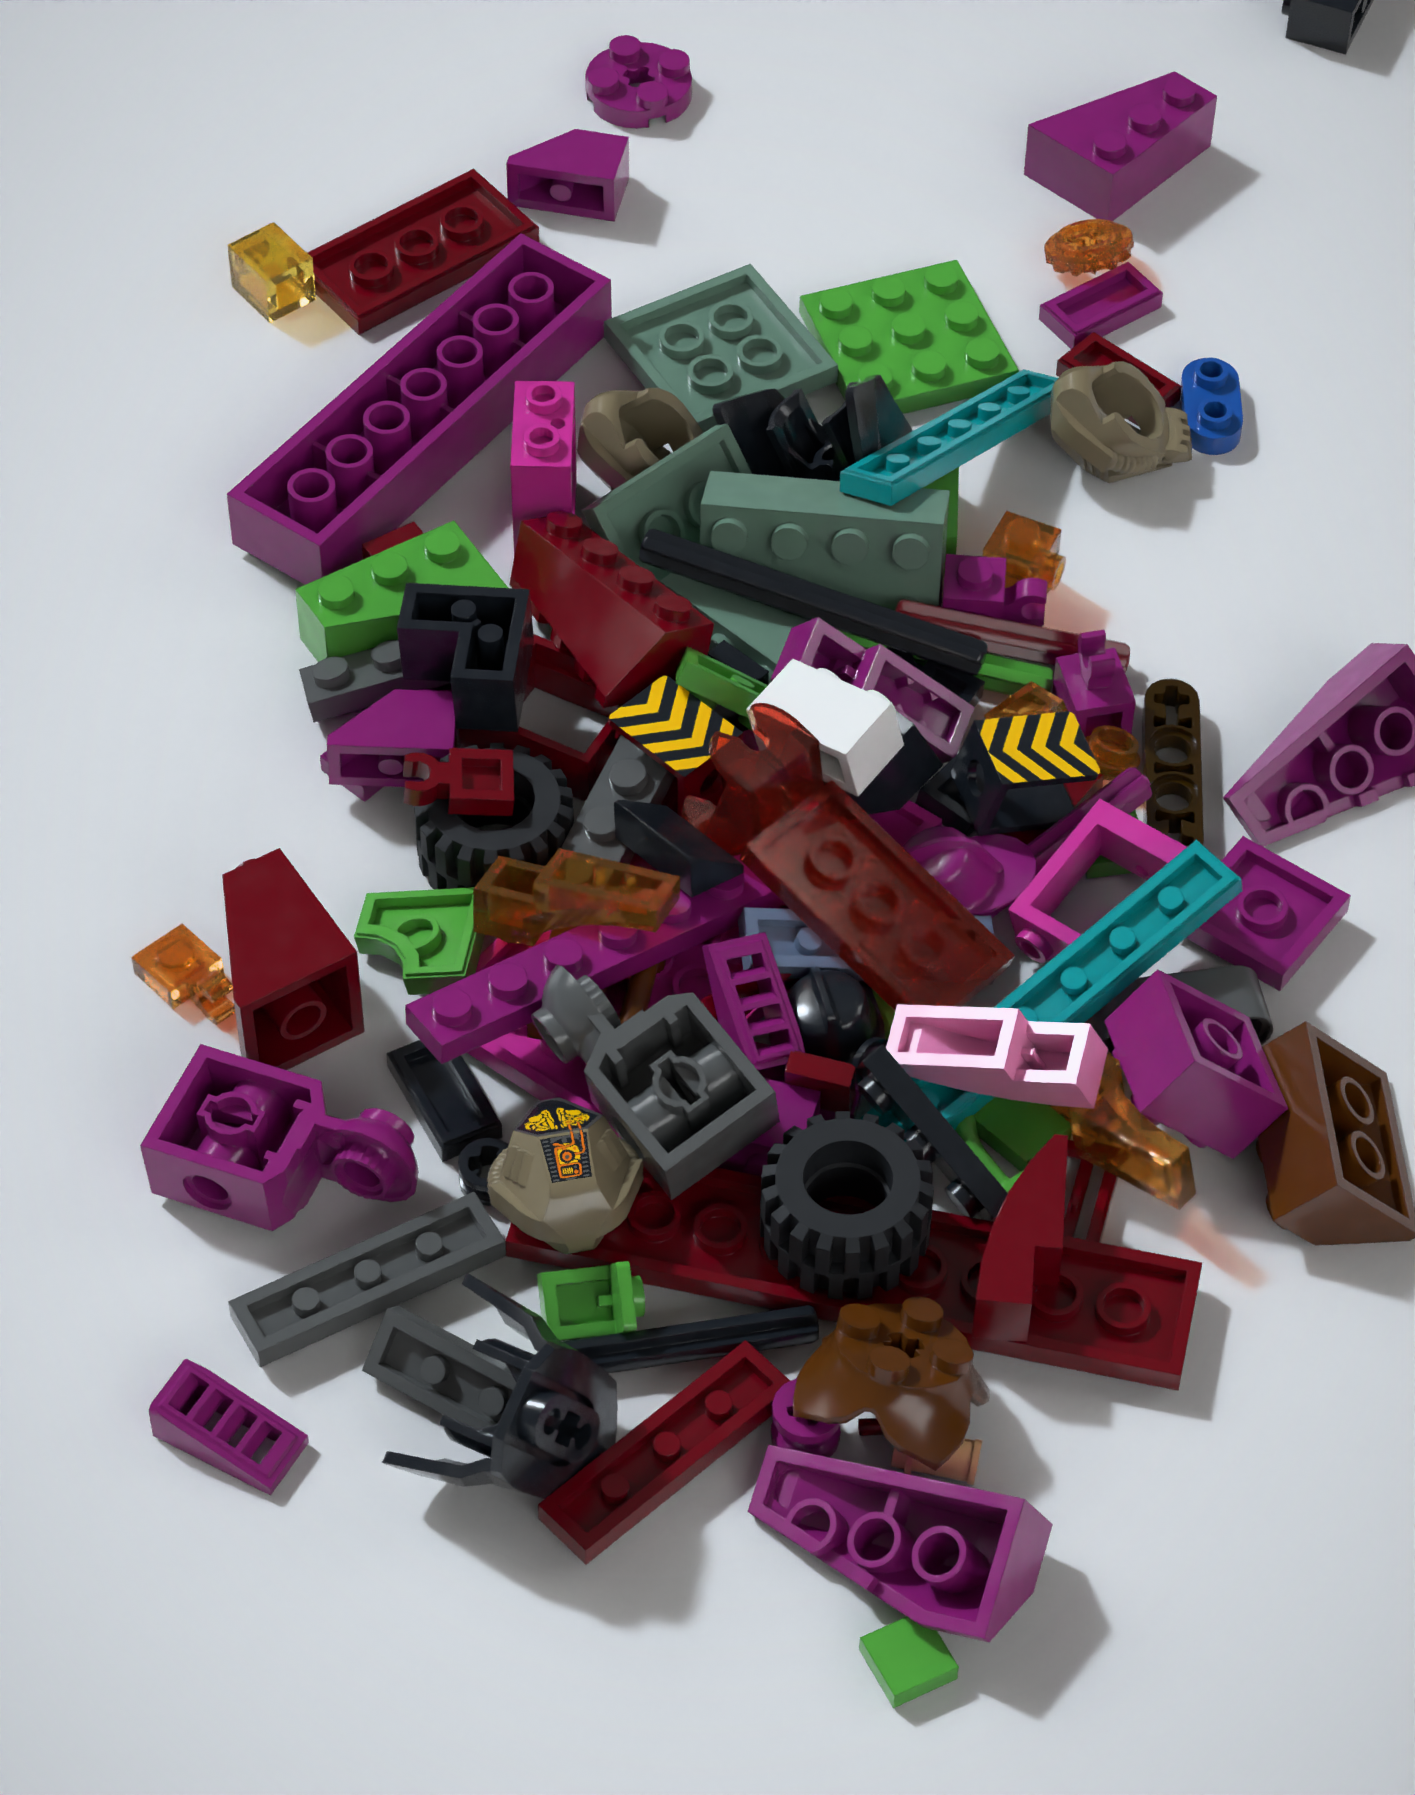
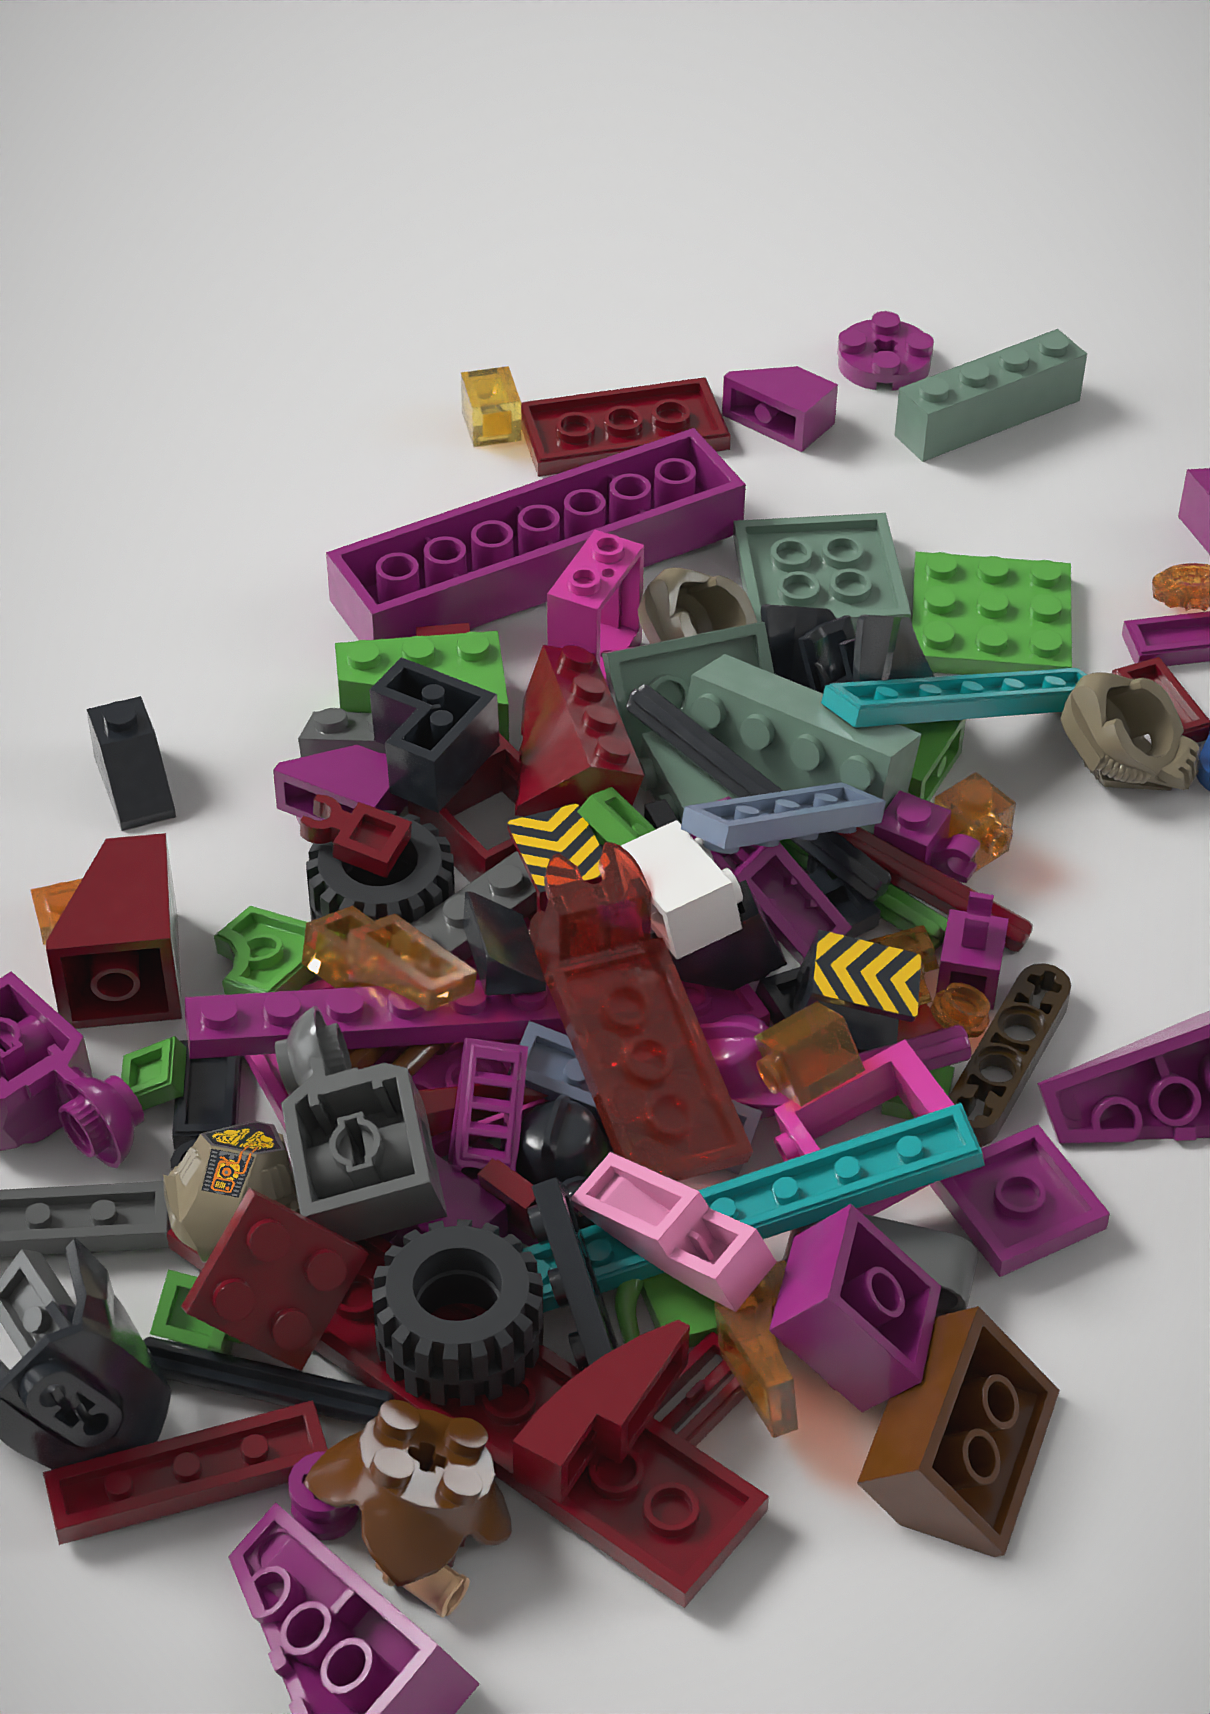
camera: 25 degrees right, 5 degrees down
(148, 789) = (130, 763): none -> black slope
(387, 1087) = (156, 1072): none -> bright green tile
(665, 1240) = (274, 1279): none -> dark red plate
(779, 99) = (989, 394): none -> sand green brick
(879, 620) = (781, 816): none -> sand blue plate
(1022, 844) = (807, 1054): none -> clear orange brick

